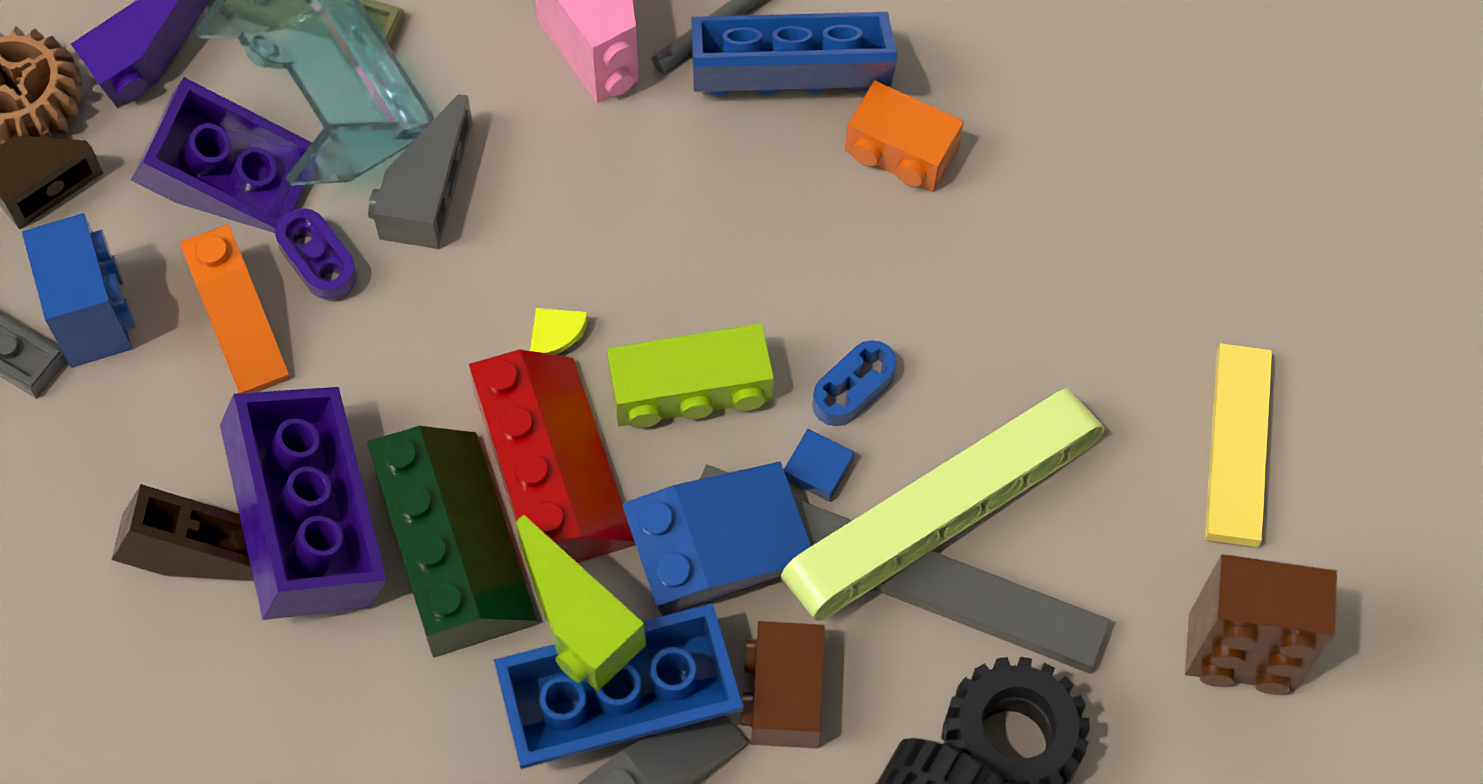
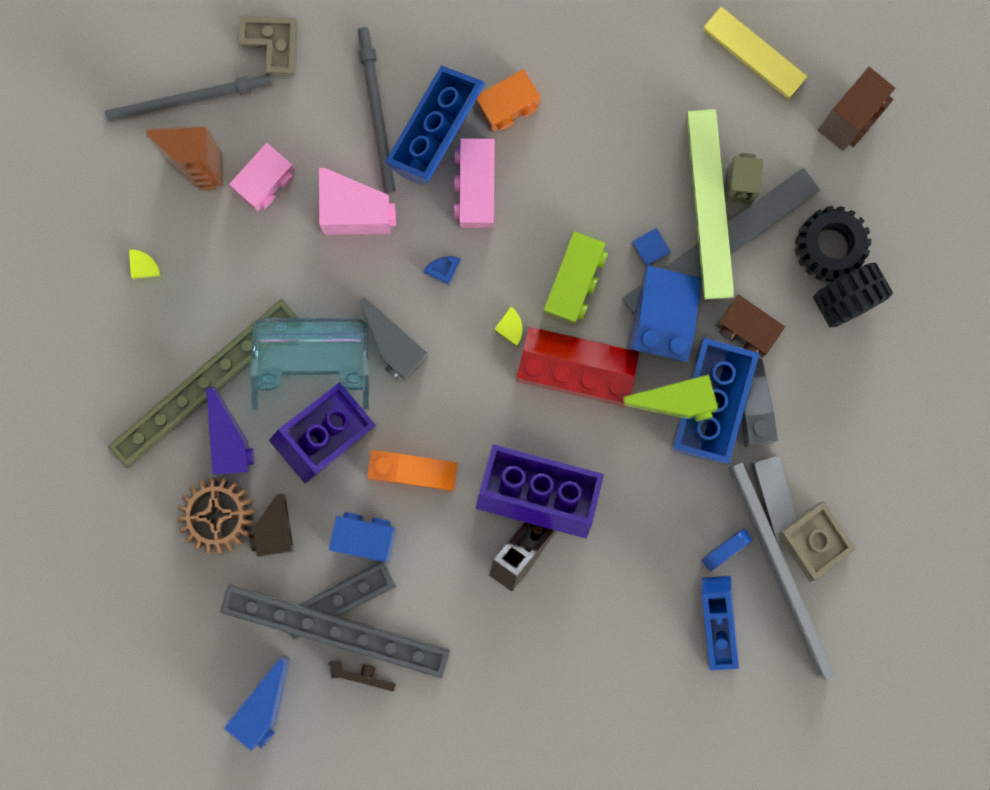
camera: 60 degrees left, 20 degrees up
(317, 257) = (401, 416): dark purple plate -> none
(451, 537) = (590, 433): dark green slope -> none
(587, 194) = (442, 269): none -> blue tile
(747, 162) = (475, 183): none -> bright pink brick
(847, 374) = (627, 205): blue beam -> none
(1019, 524) = (744, 179): none -> olive brick

